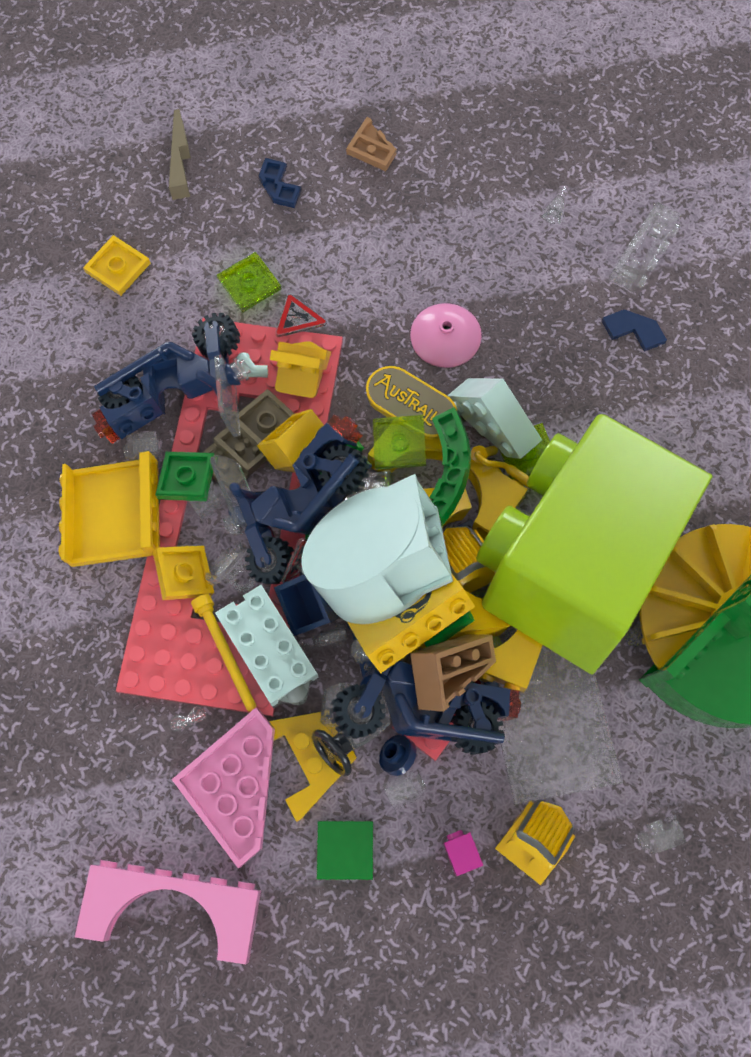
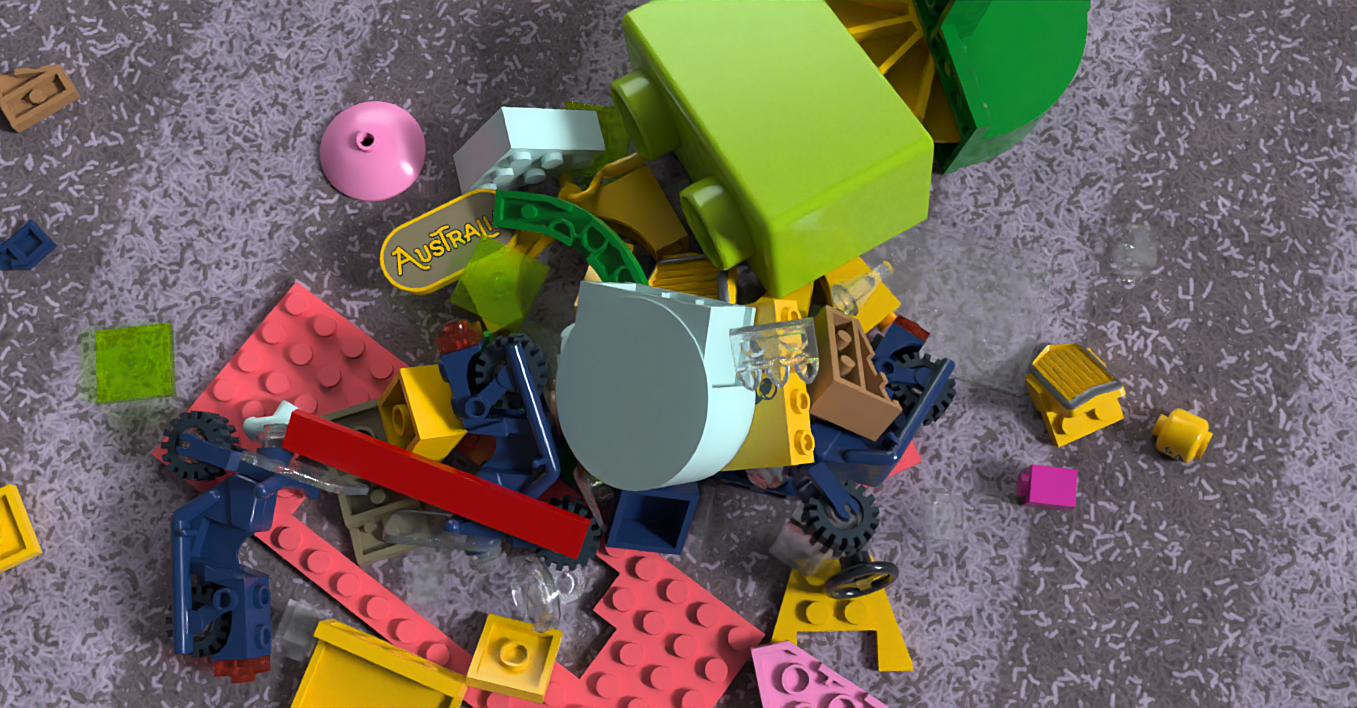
camera: 65 degrees left, 5 degrees up
(185, 476) = (381, 589): green tile -> none
(204, 607) = (580, 652): yellow piece -> none
(256, 469) = (436, 483): none -> red tile
(268, 648) = (684, 593): light aqua piece -> none
(297, 318) = (233, 325): piece -> none
(299, 367) = (314, 357): yellow piece -> none
(345, 850) = (975, 627): green tile -> none
(397, 755) = (898, 503): dark blue plate -> none
(429, 604) = (775, 349): none -> clear plate
(515, 653) = (853, 293): none -> clear cone
(550, 932) = (1182, 435): none -> yellow head

